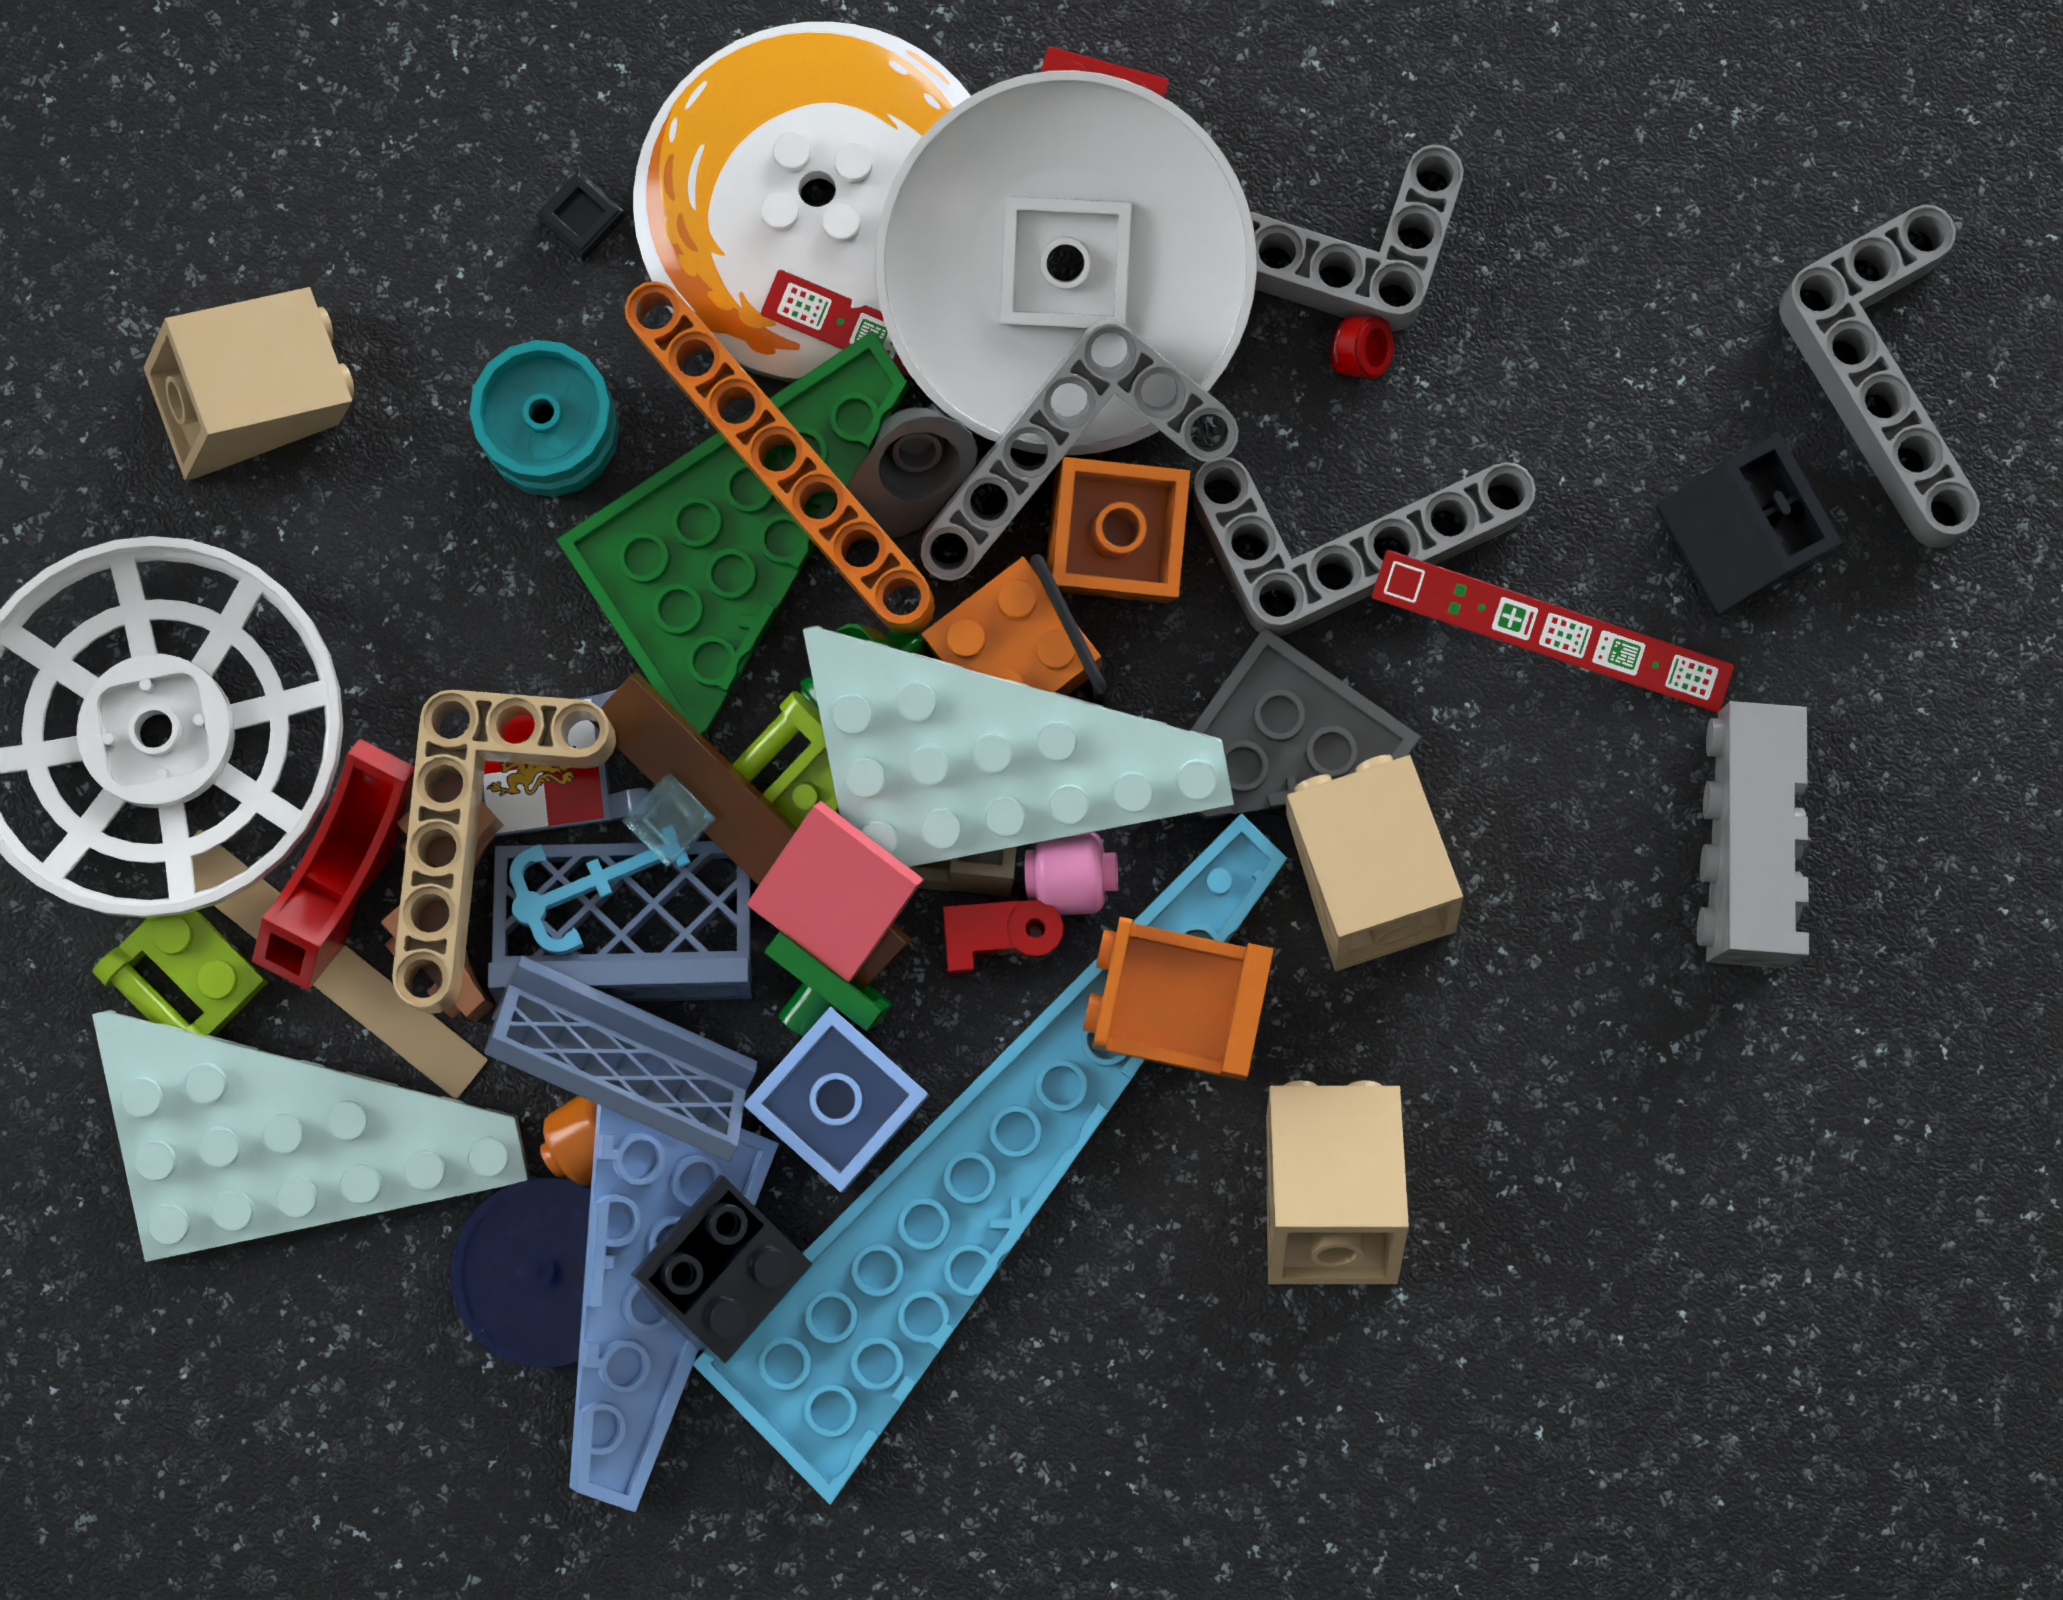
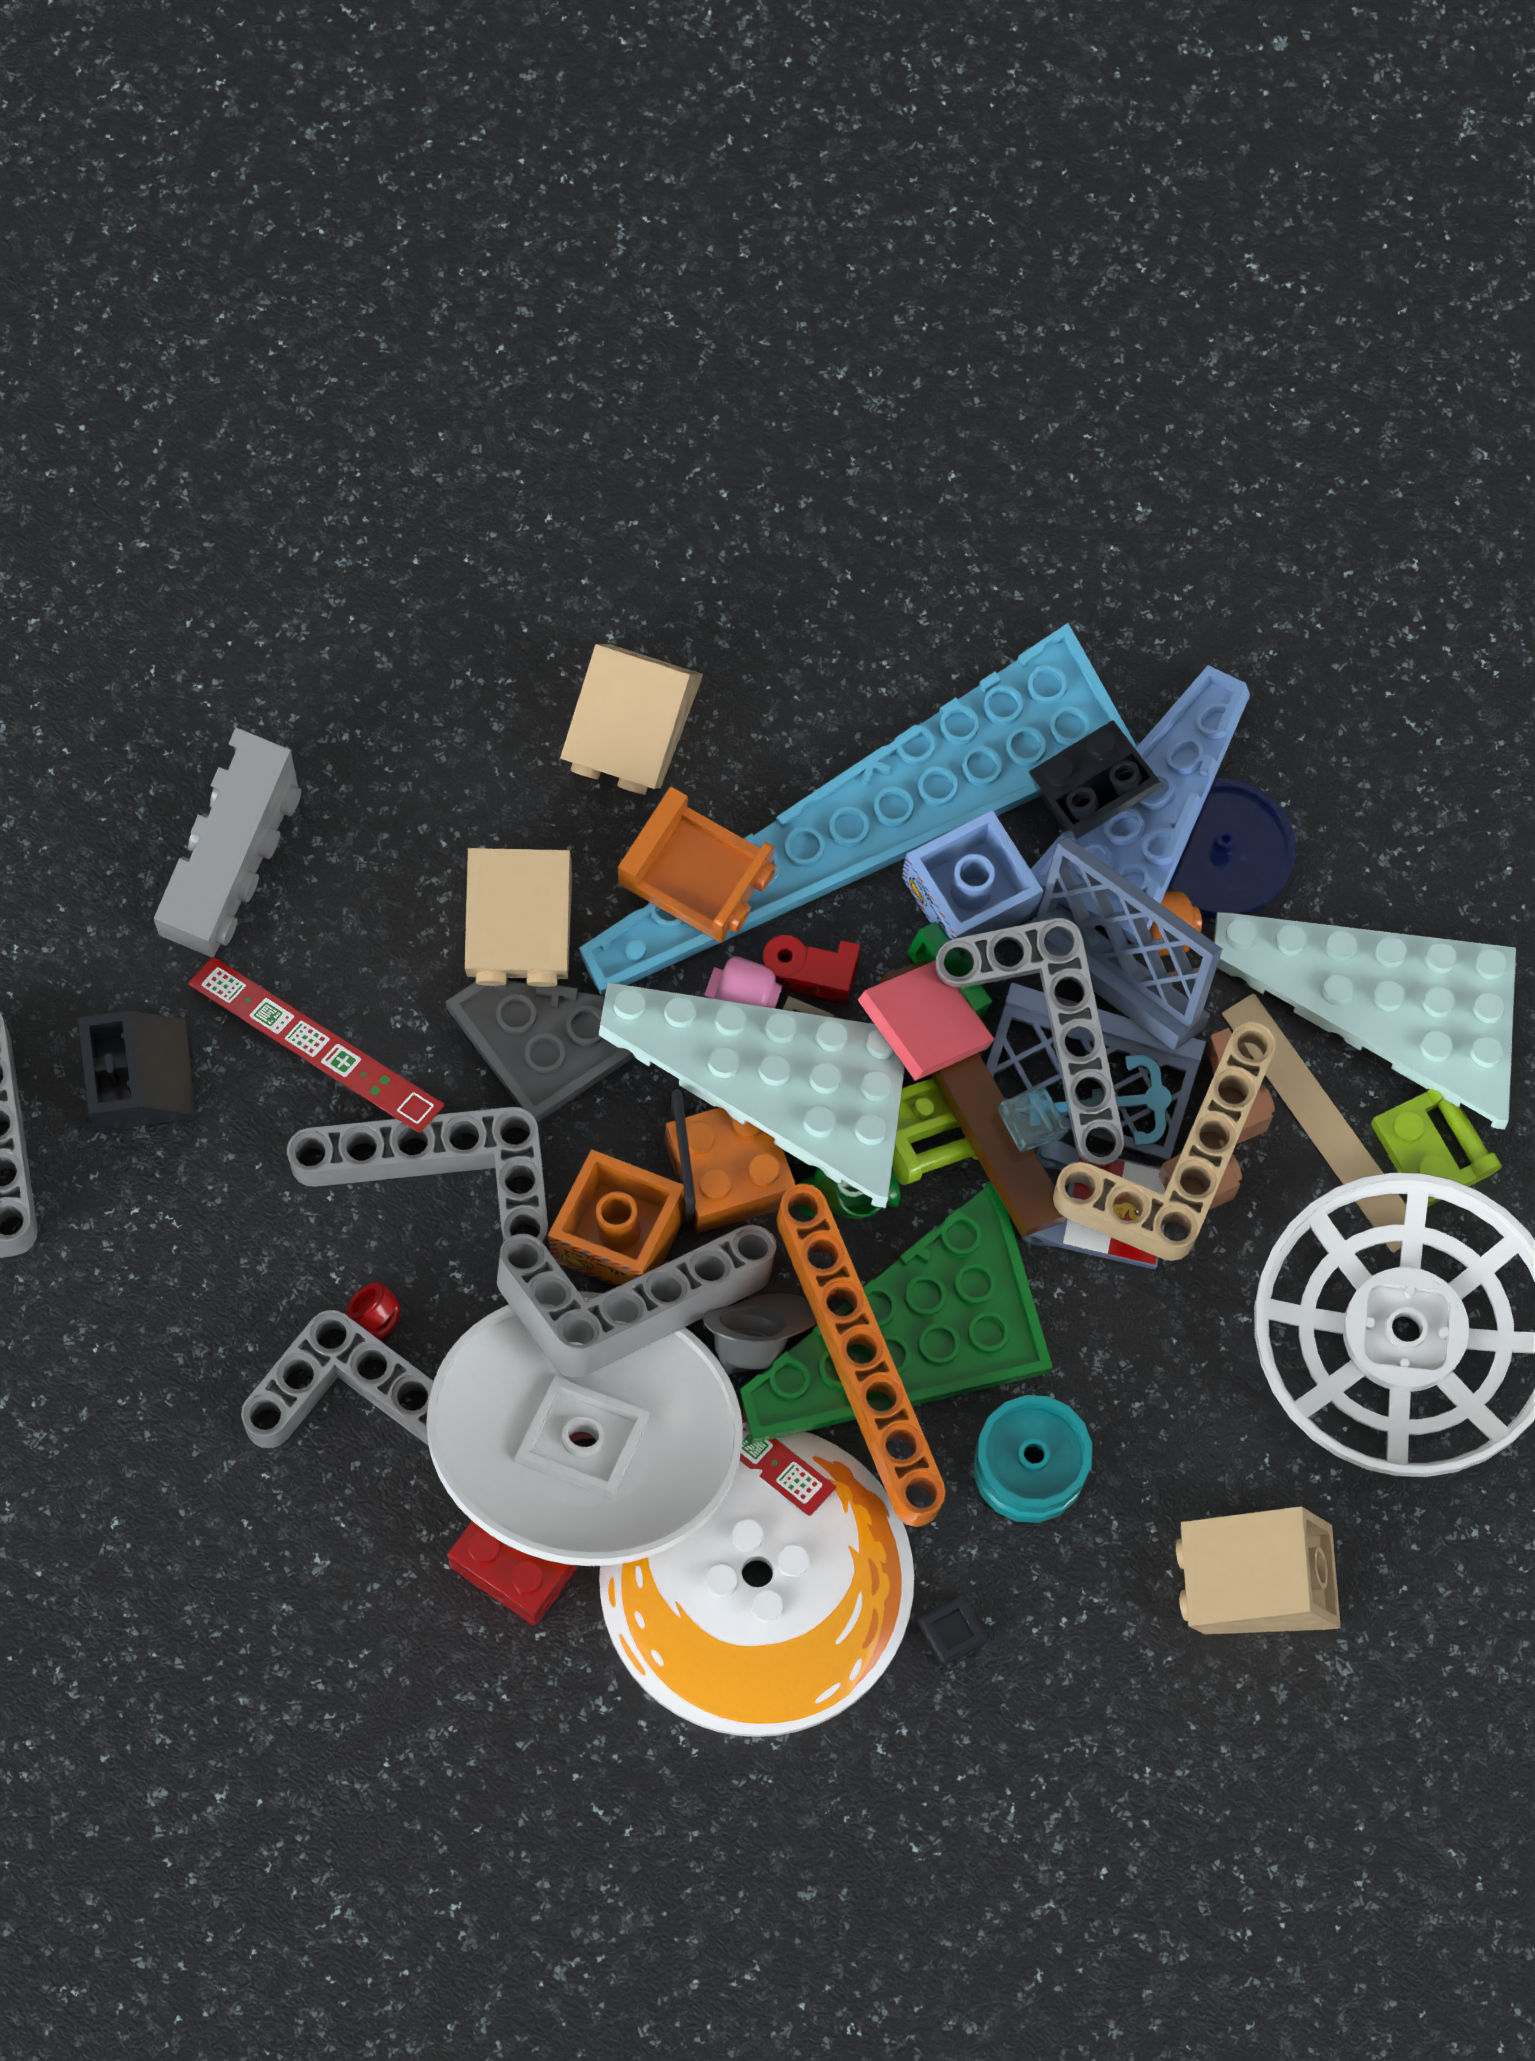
camera: 165 degrees left, 10 degrees down
(346, 855) = (1295, 1167): red arch -> none
(664, 945) = (1062, 1018): none -> light grey beam

